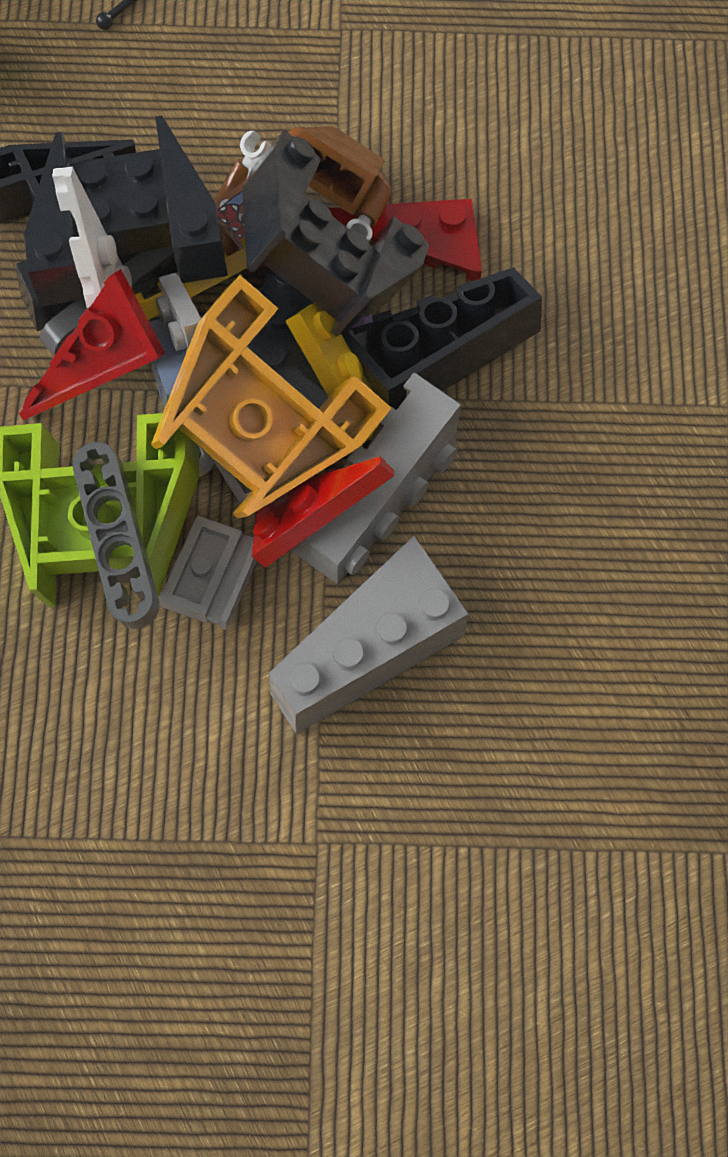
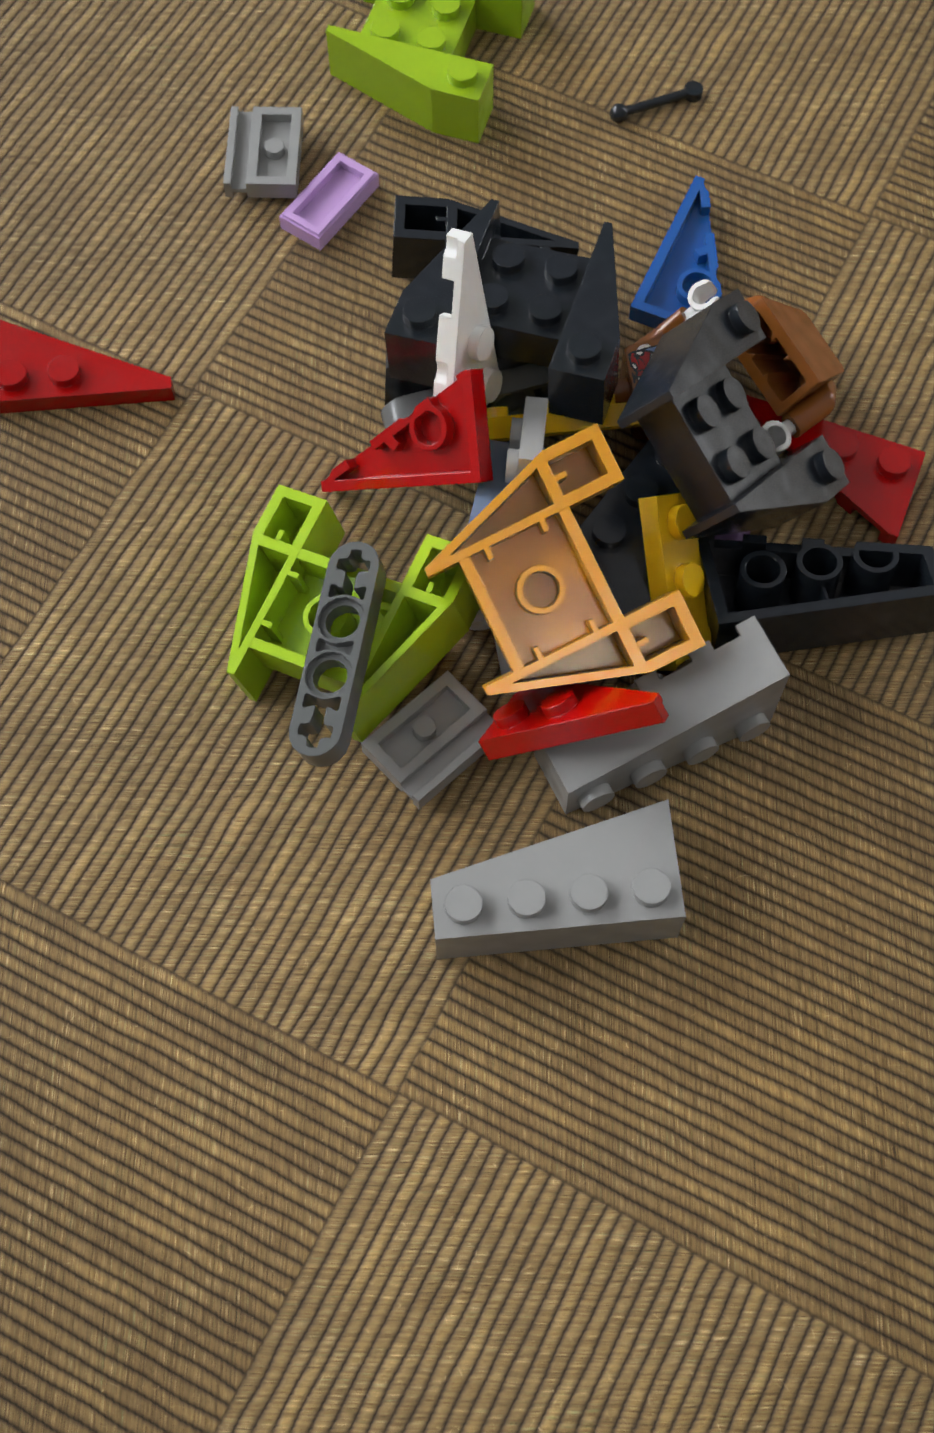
camera: 30 degrees right, 0 degrees up
(217, 124) = (682, 260): none -> blue wing

